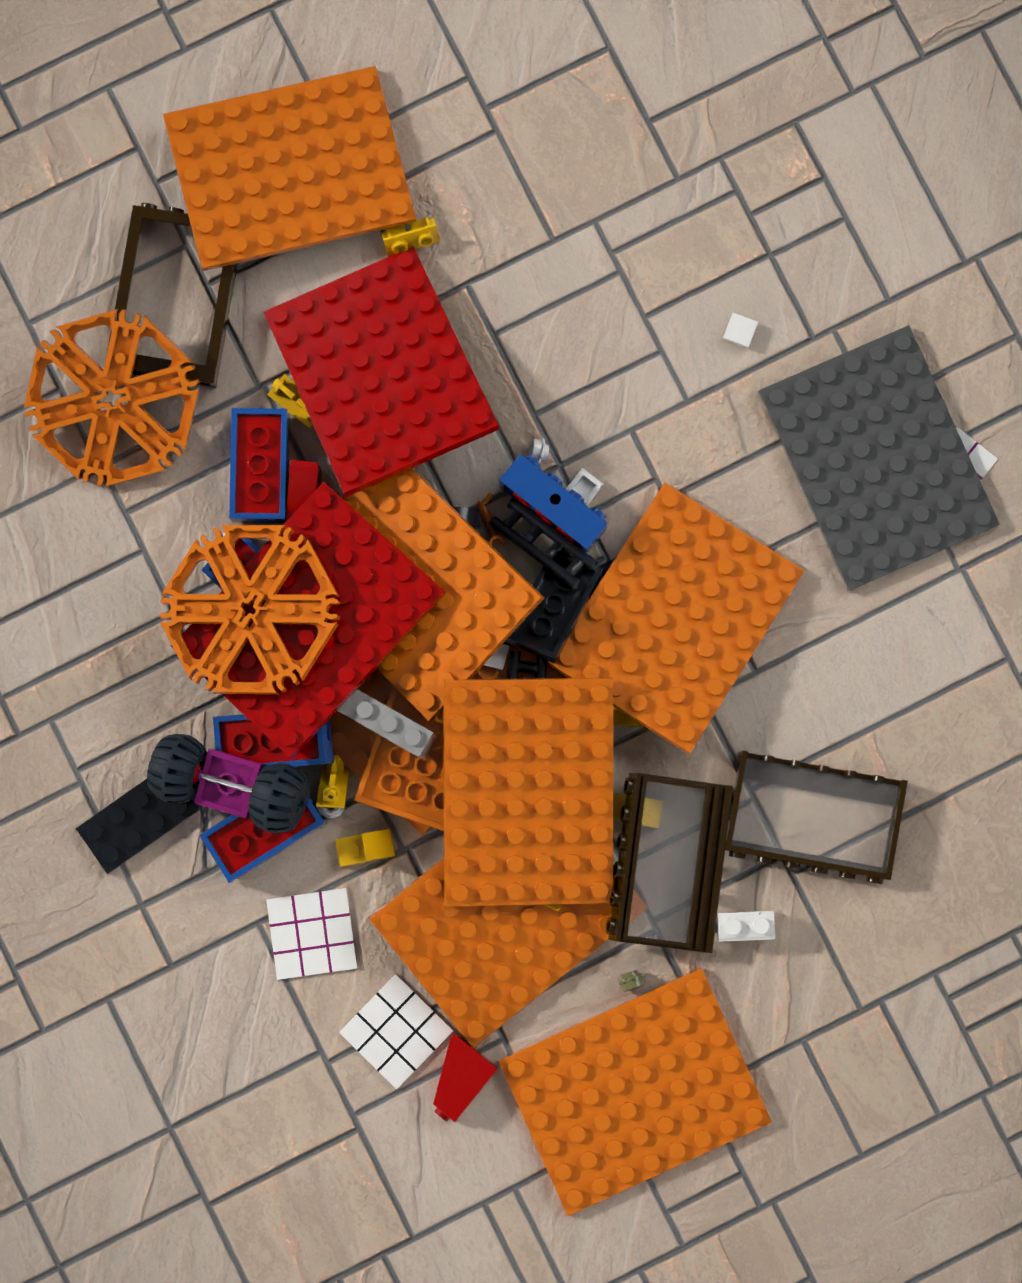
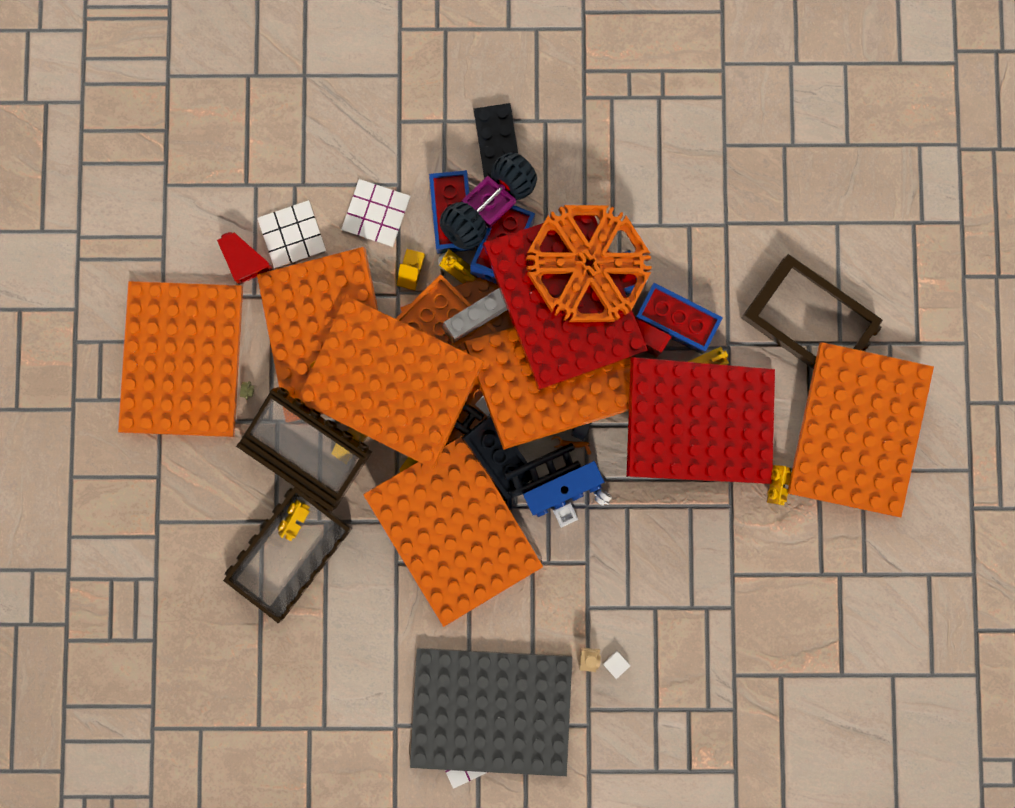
camera: 120 degrees right, 0 degrees up
(116, 372) = (780, 256): orange plate -> none
(745, 926) = (242, 476): white brick -> none
(751, 367) = (589, 659): none -> tan brick
(755, 832) = (288, 526): none -> yellow hinge

